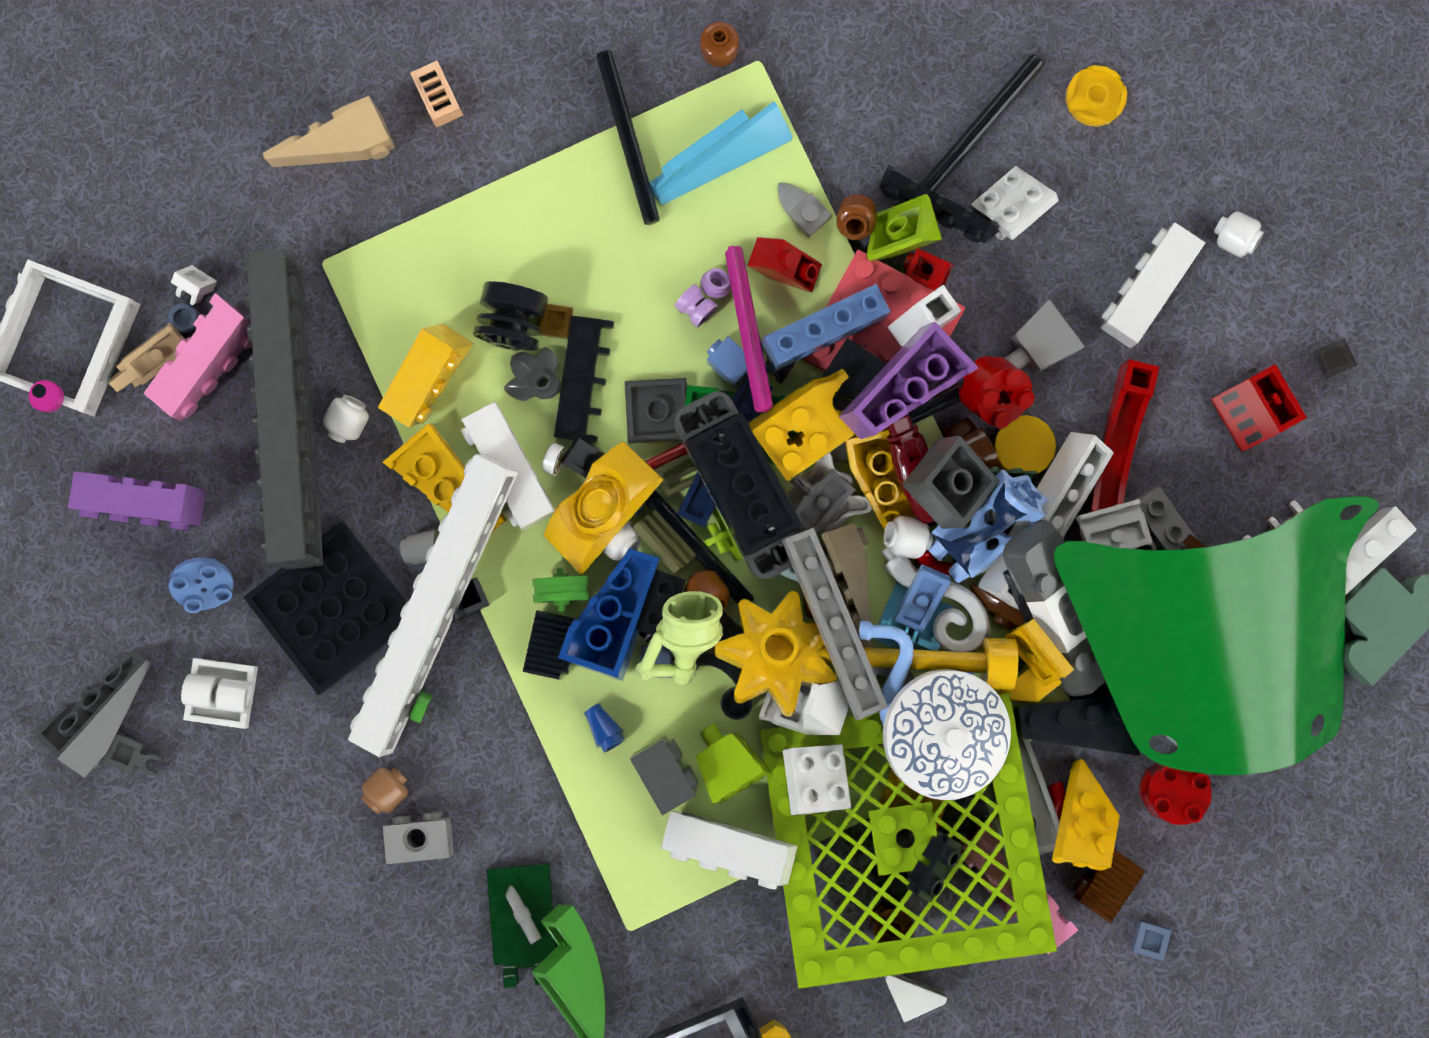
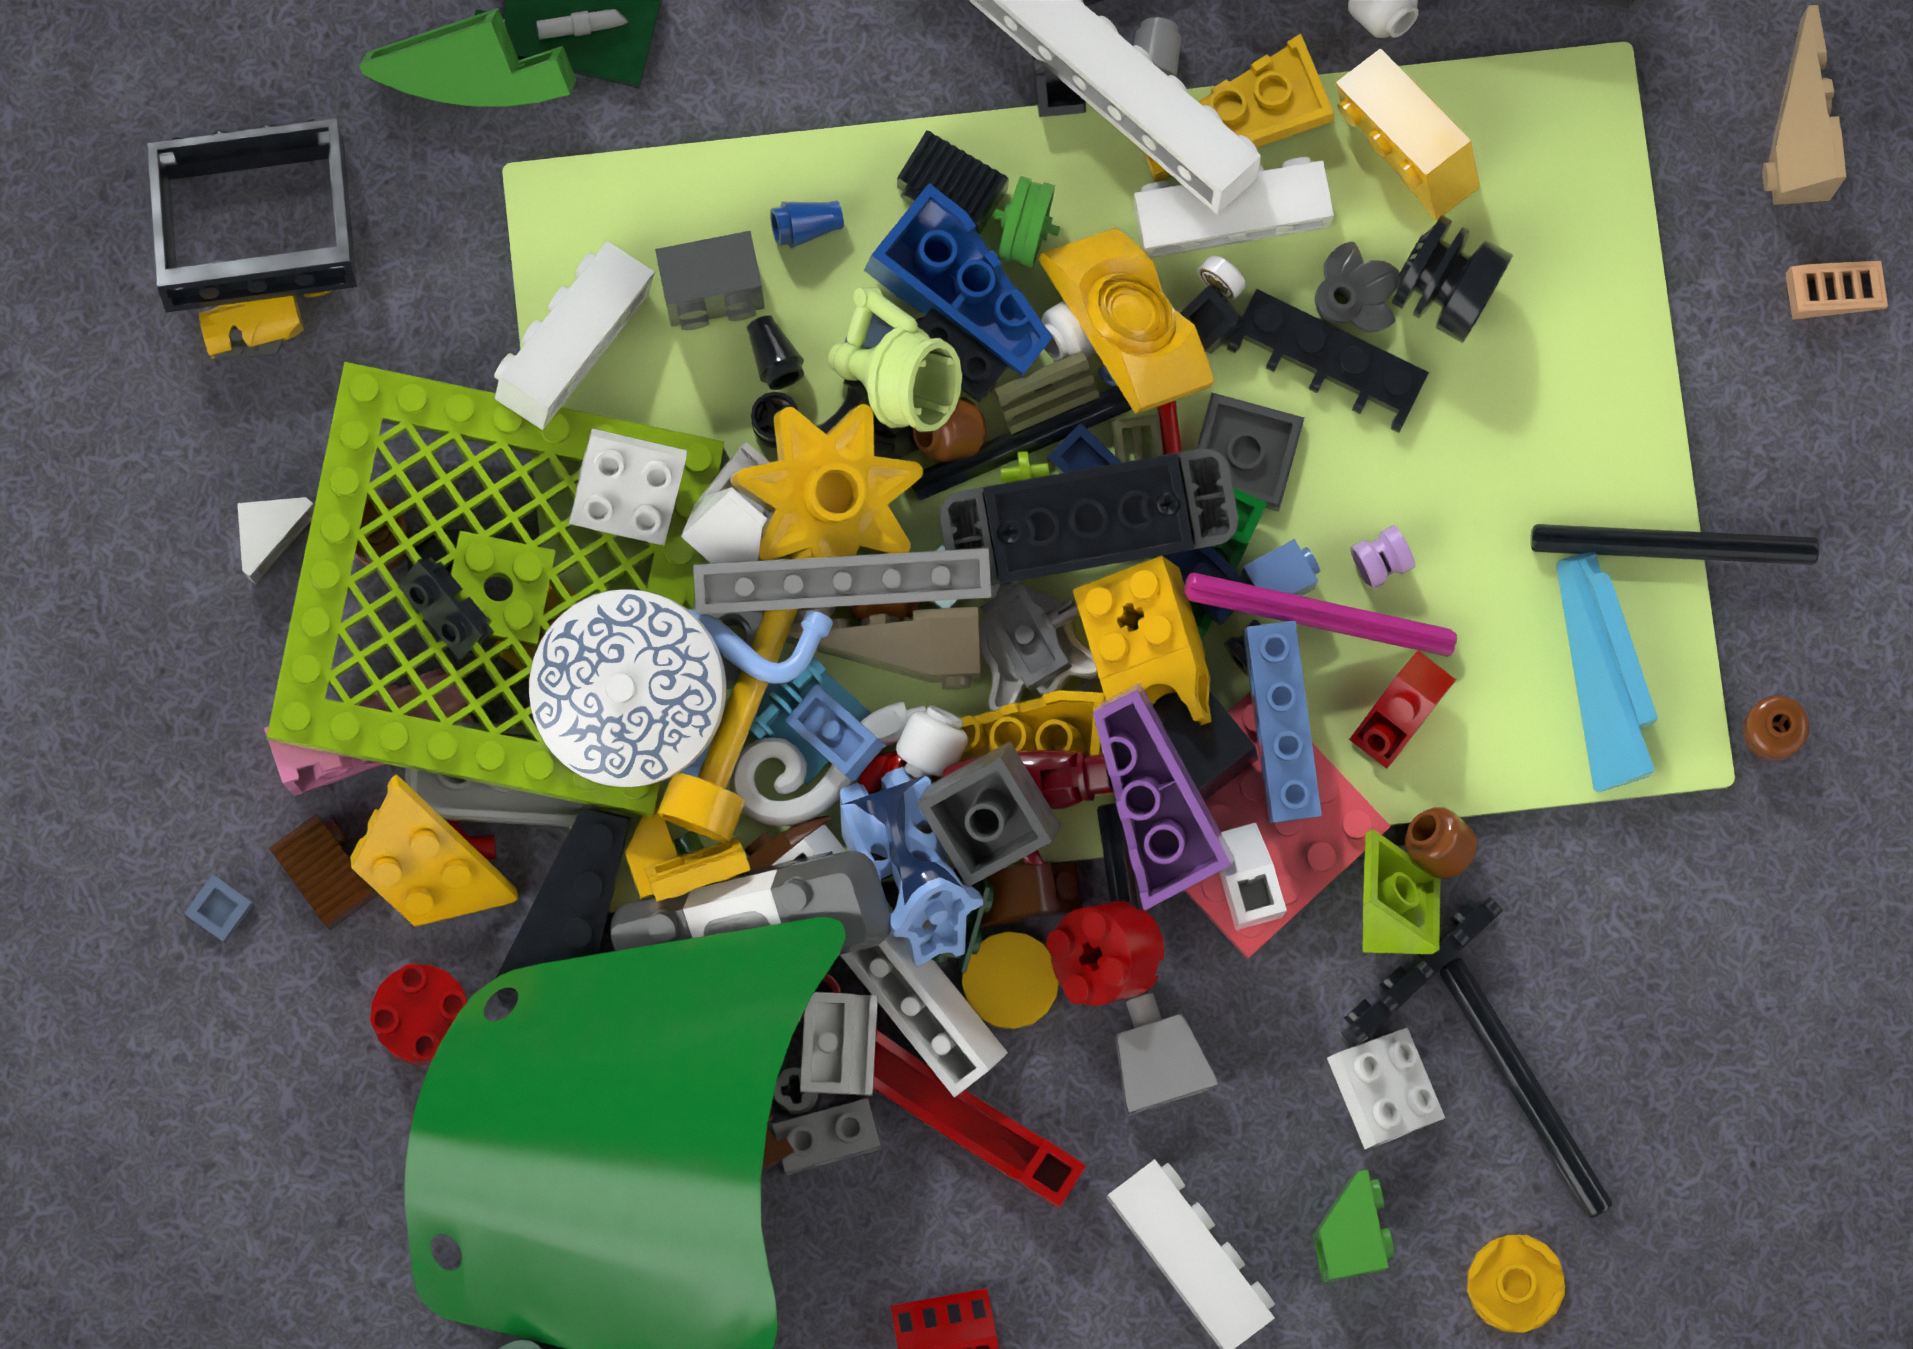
camera: 105 degrees right, 5 degrees down
(556, 321) = (1428, 348): pearl gold tile -> none
(694, 718) = (774, 354): none -> black cone
(716, 277) = (1419, 600): lavender plate -> none
(728, 764) = (691, 376): lime torso -> none
(803, 208) = (1482, 769): light grey plate -> none
(914, 267) = (1323, 908): red brick -> none
(1110, 194) = (1350, 1234): none -> bright green slope

